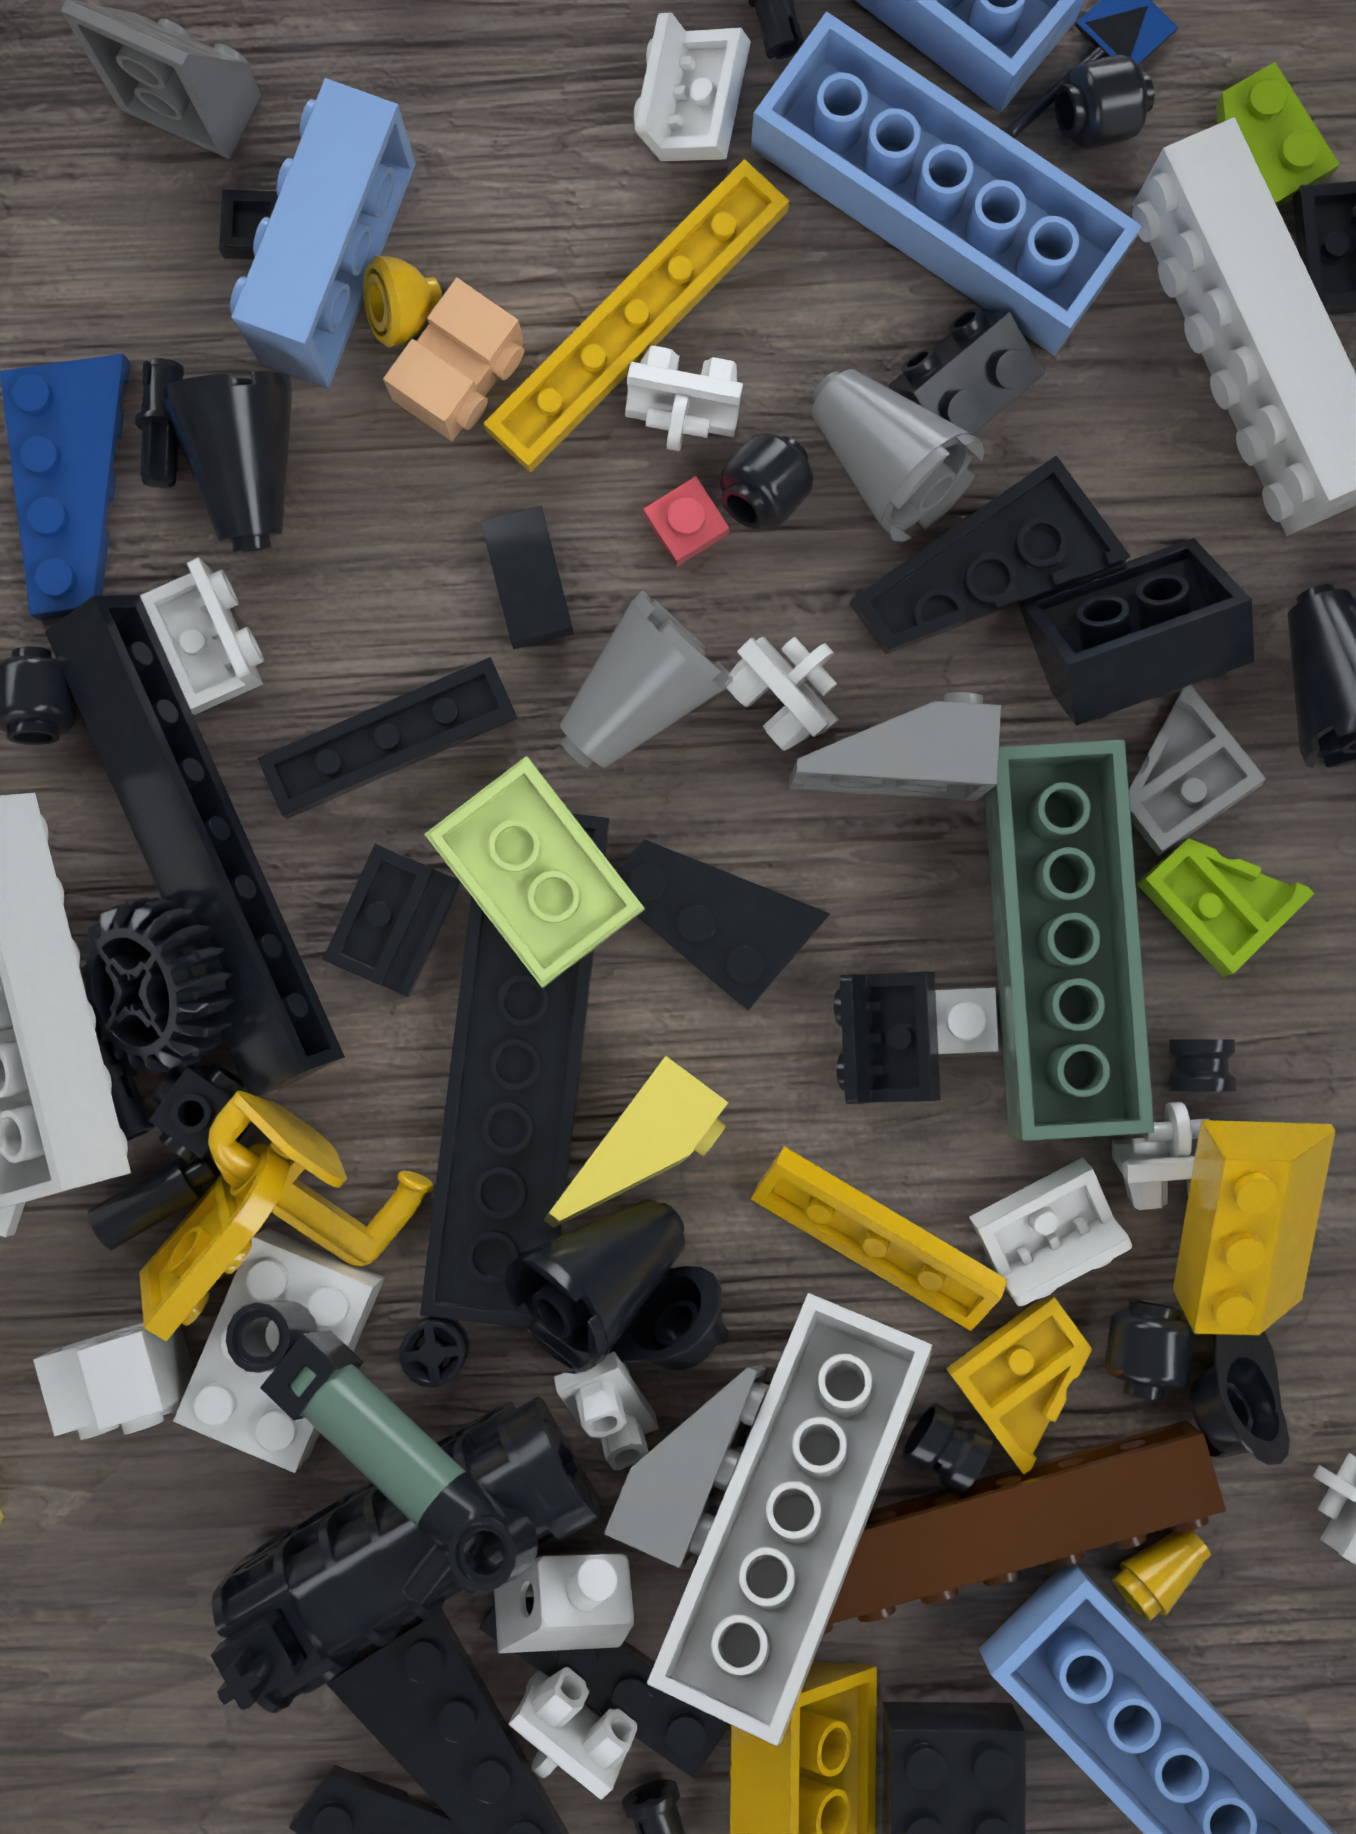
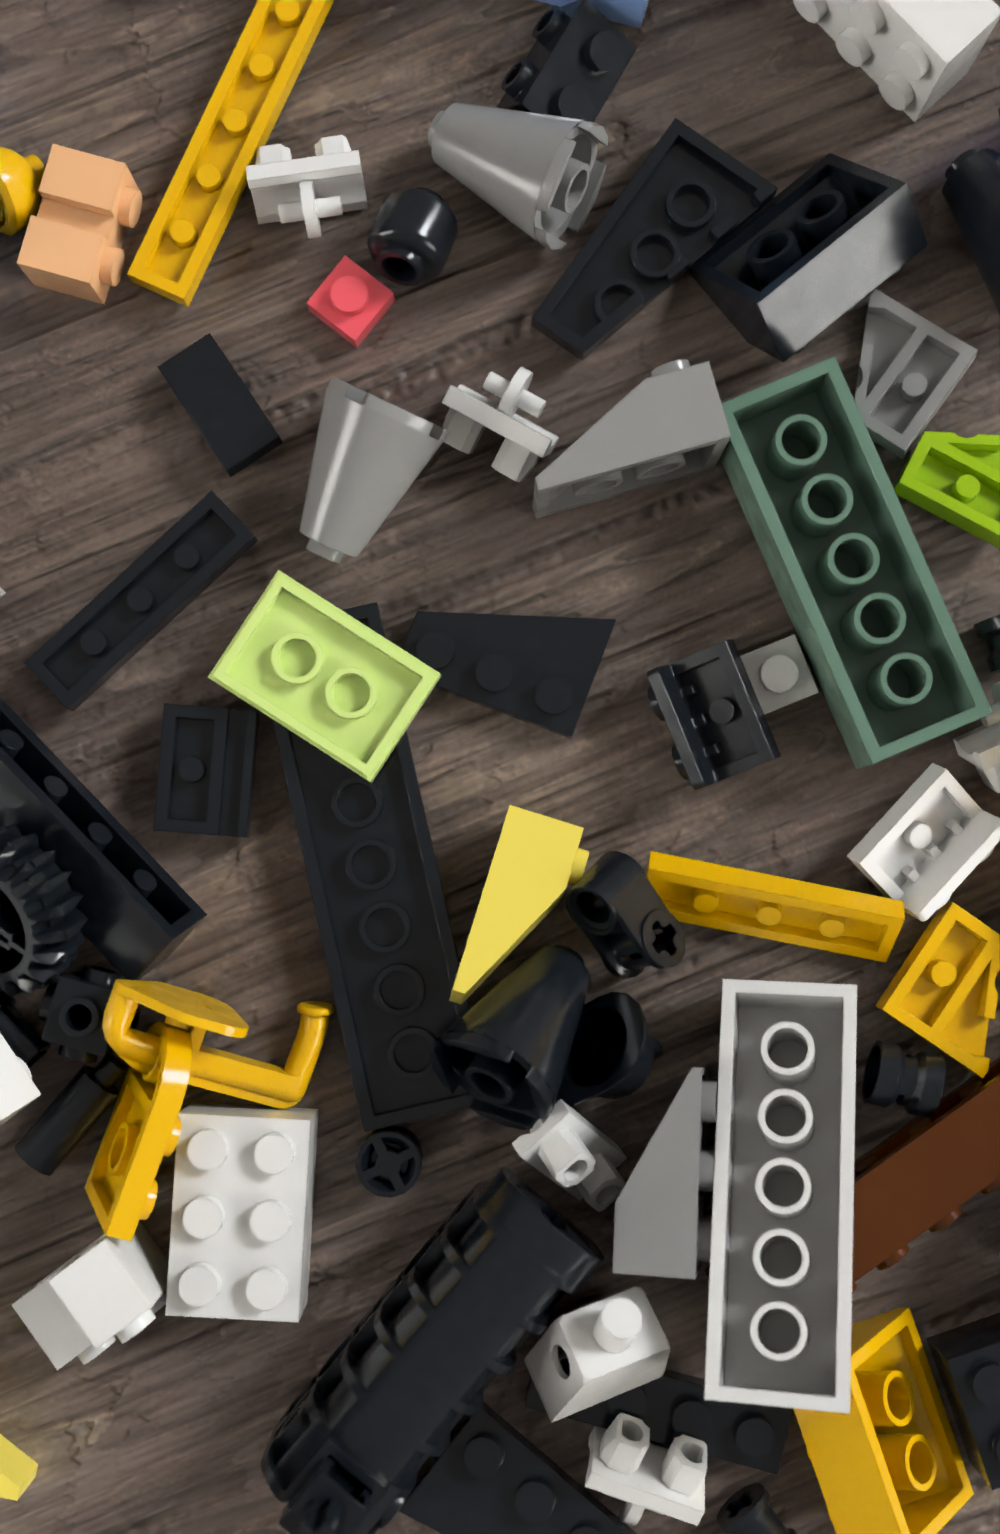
camera: 20 degrees left, 0 degrees up
(321, 1381) = (294, 1226): black piece -> none
(732, 1196) = (619, 915): none -> black piece

